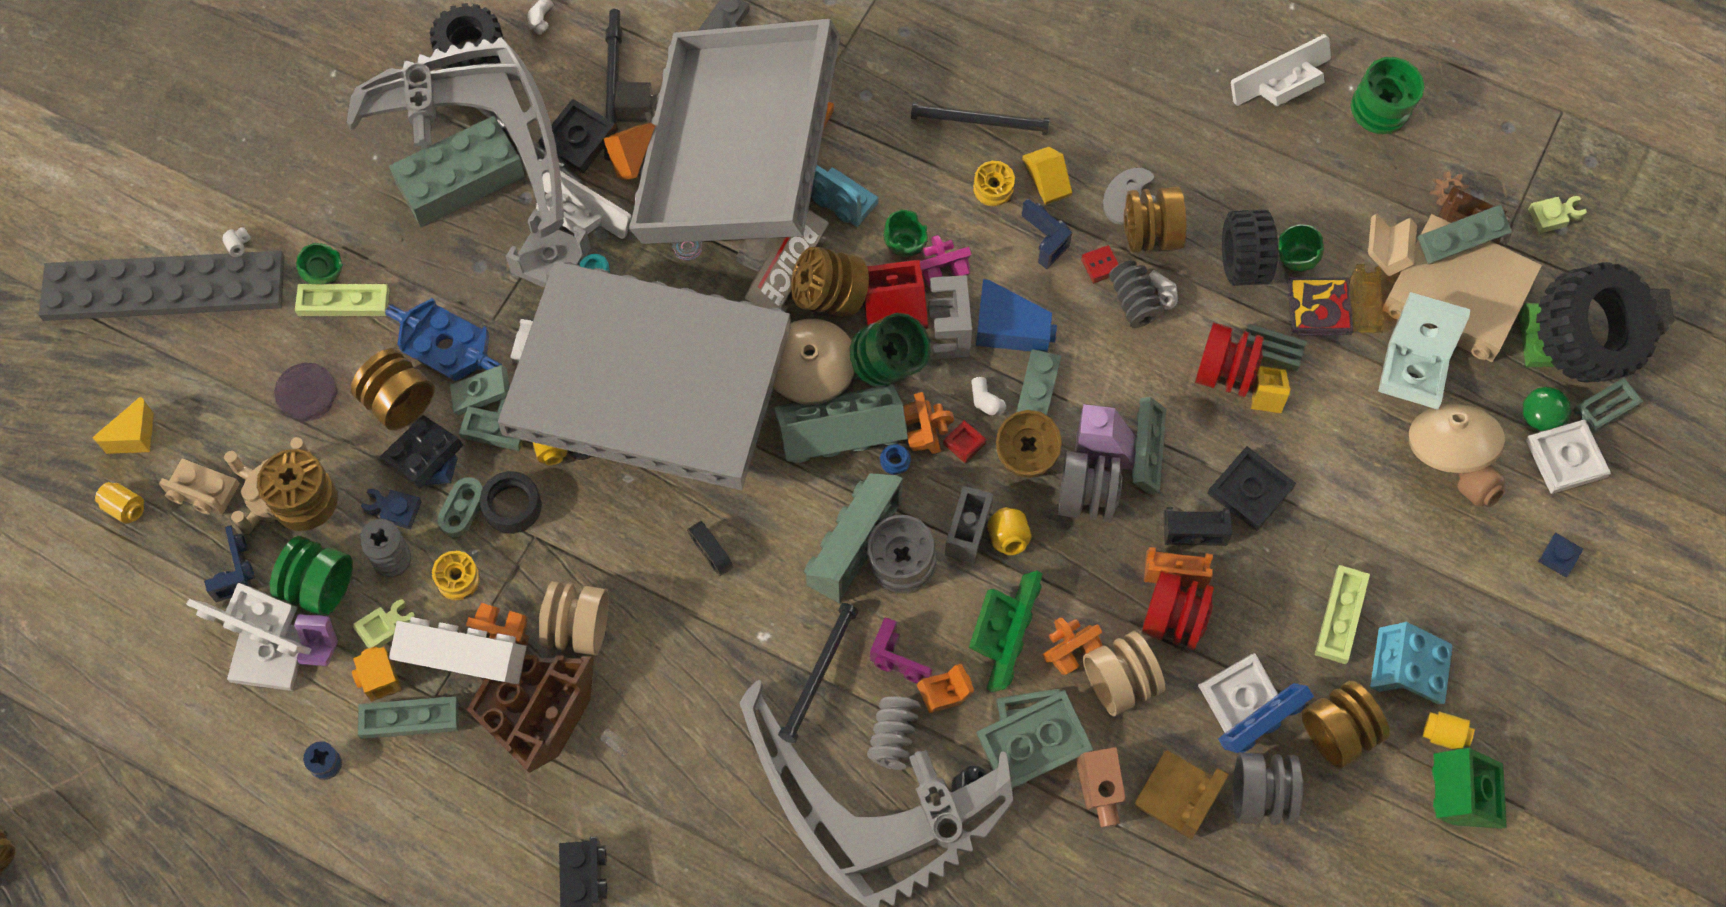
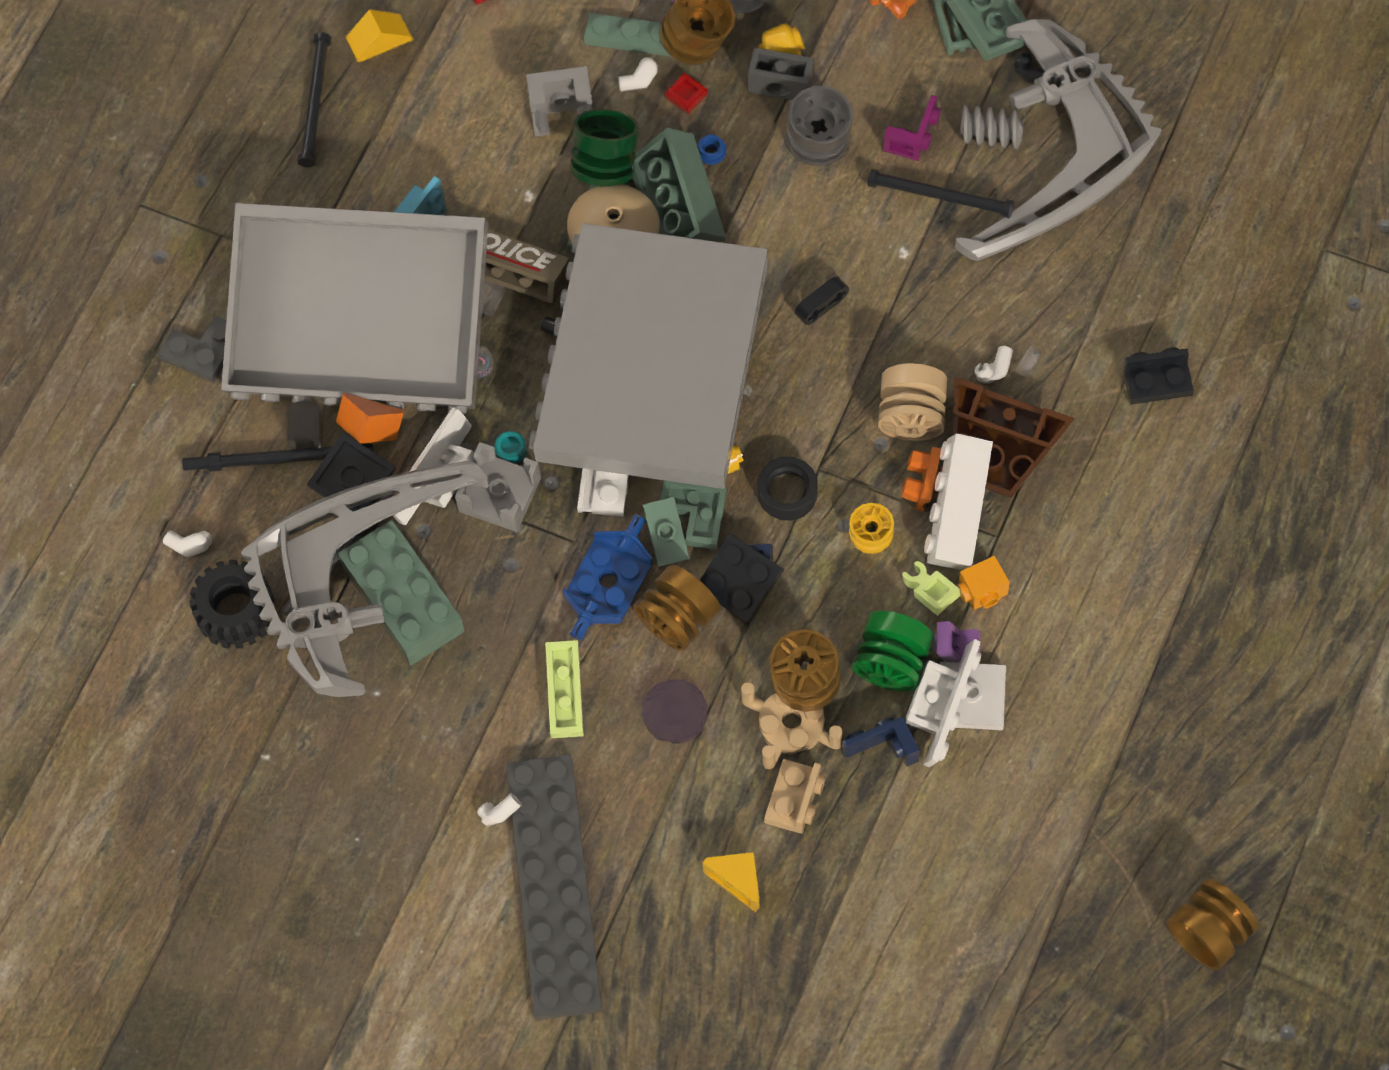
camera: 90 degrees left, 0 degrees up
(120, 502) = (821, 870): yellow brick -> none
(319, 264) = (525, 715): green hair -> none
(327, 766) = (1075, 628): dark blue wheel -> none
(385, 547) = (856, 586): dark grey piece -> none
(396, 507) = (800, 599): dark blue plate -> none
(408, 717) = (1024, 550): sand green plate -> none
(459, 508) = (798, 533): sand green plate -> none
(614, 712) = (998, 369): none -> white arm
(829, 282) = (531, 205): pearl gold wheel -> none
(847, 545) = (800, 168): sand green slope -> none
(896, 290) = (537, 157): red slope -> none
(905, 233) = (461, 154): green hair -> none
(921, 412) = (686, 120): orange hips -> none
(946, 689) = (941, 82): orange bracket -> none
(956, 260) = (486, 119): dark pink hips -> none
(997, 172) = (386, 74): yellow wheel -> none
(1002, 628) = (880, 42): green bracket -> none
(1012, 321) = (553, 48): blue slope -> none
(1057, 232) = (453, 18): dark blue bracket -> none

